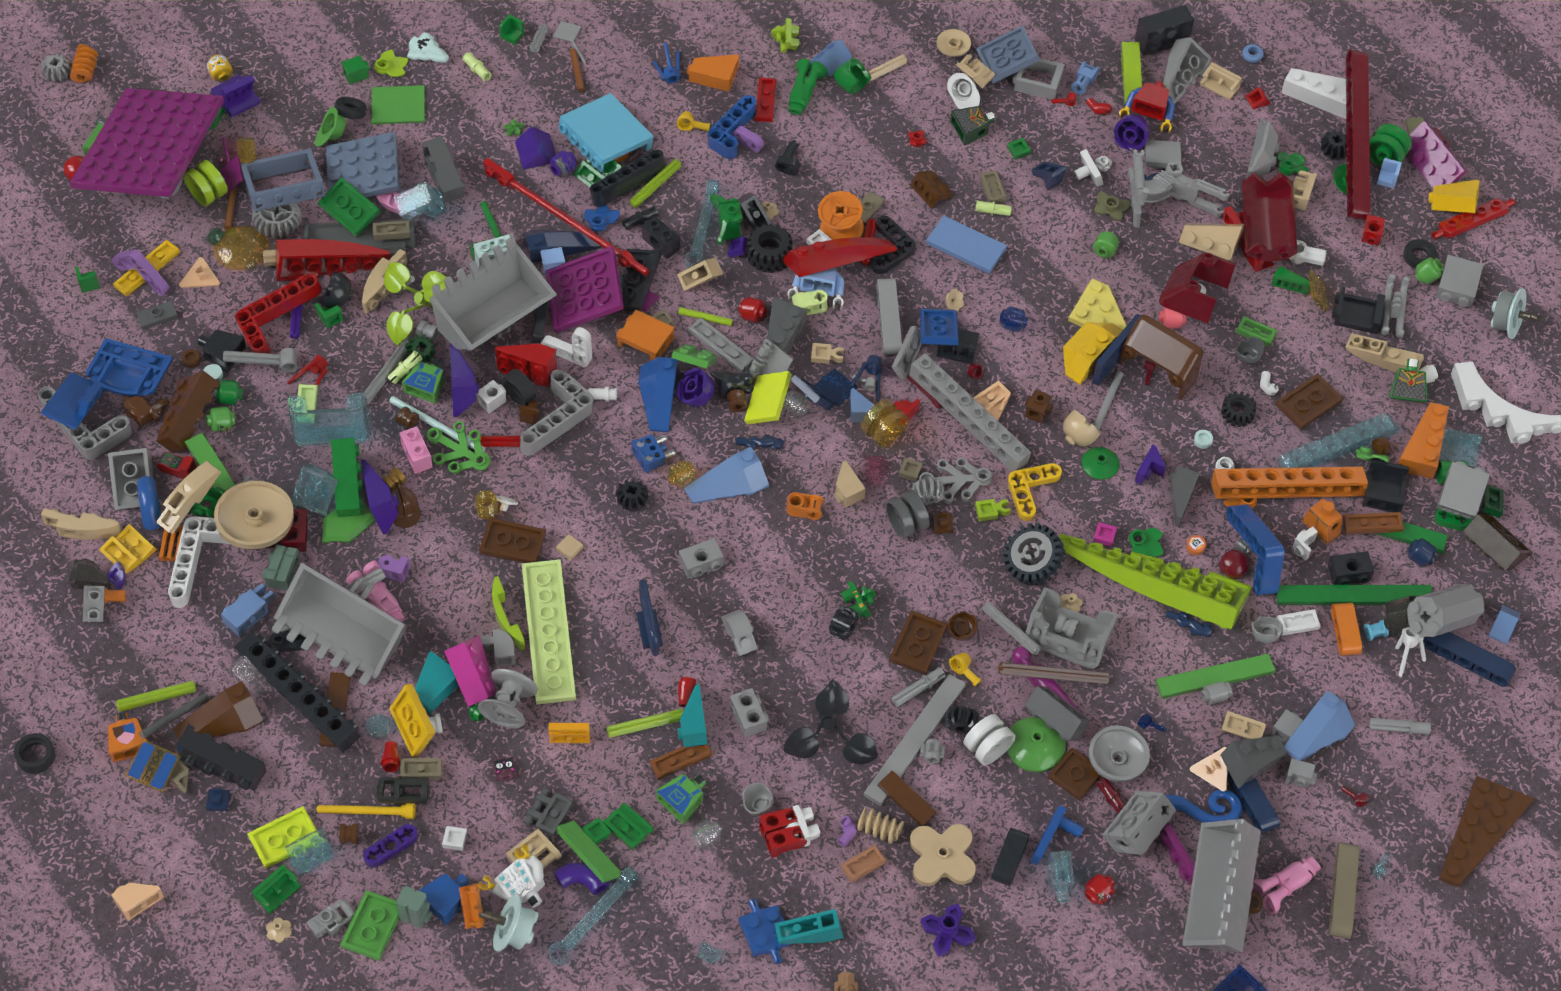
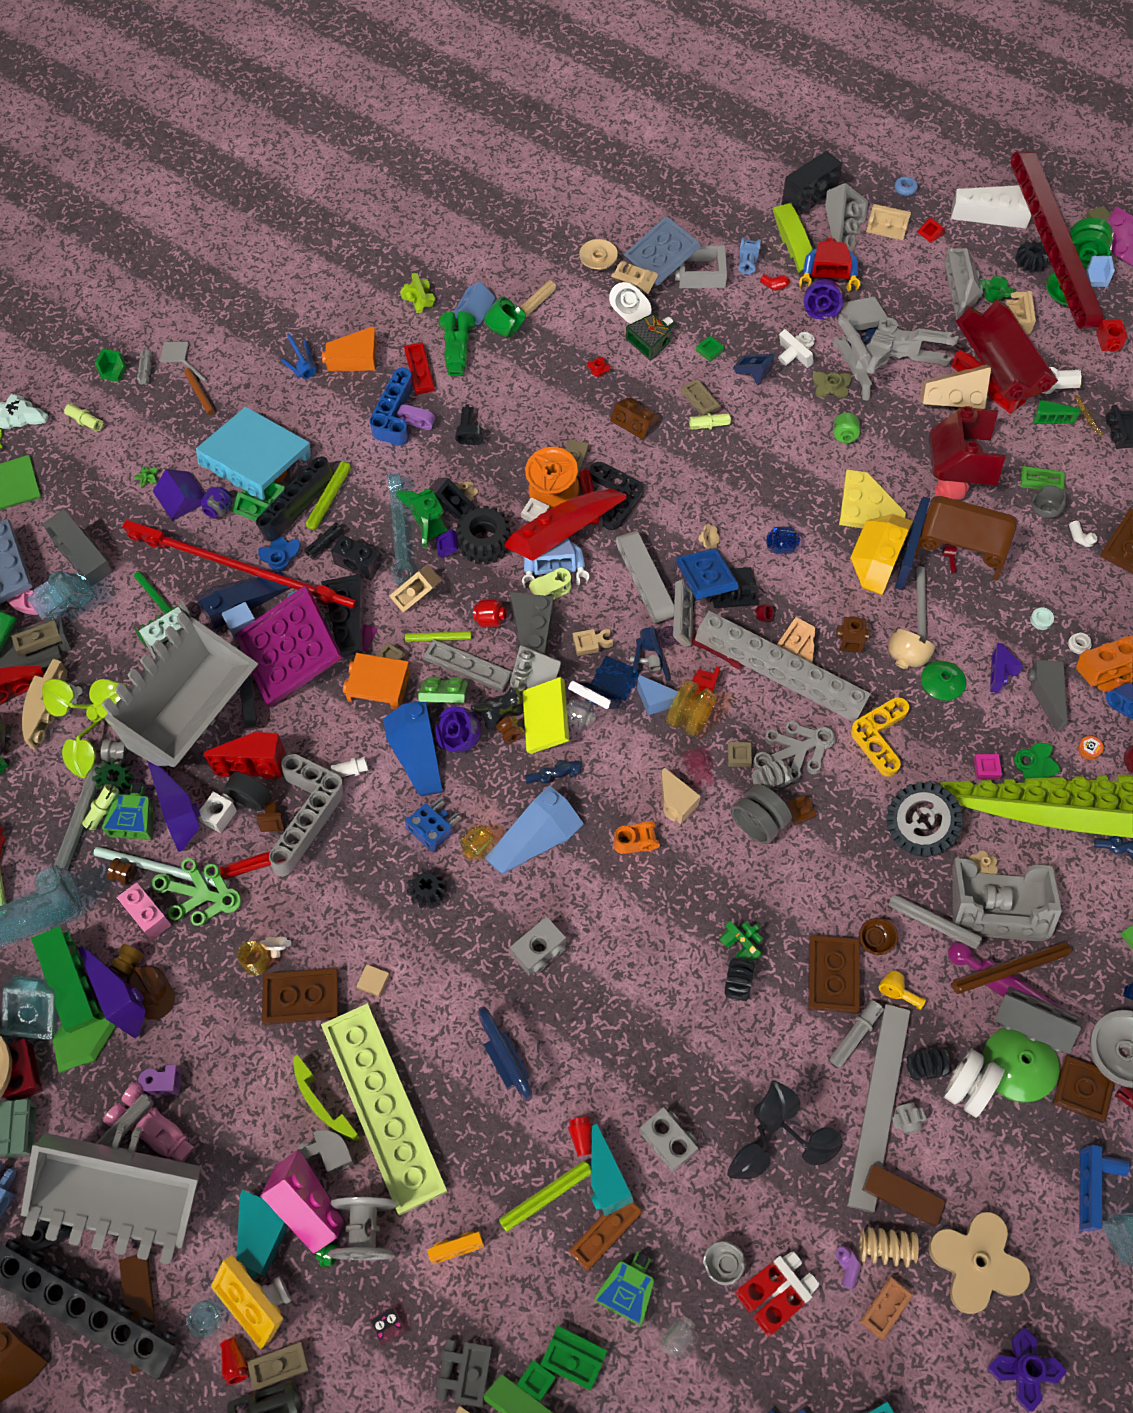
camera: 15 degrees left, 5 degrees up
(578, 352) = (303, 725): white beam -> none
(687, 119) = (340, 413): yellow bar -> none
(740, 629) = (619, 1029): light grey brick -> none
(966, 244) = (697, 469): medium blue tile -> none
(989, 509) = (847, 777): lime plate -> none
(1010, 856) = (1058, 1235): black beam -> none
(1070, 100) = (742, 283): red hand -> none
(1241, 400) = (1068, 562): black tyre -> none

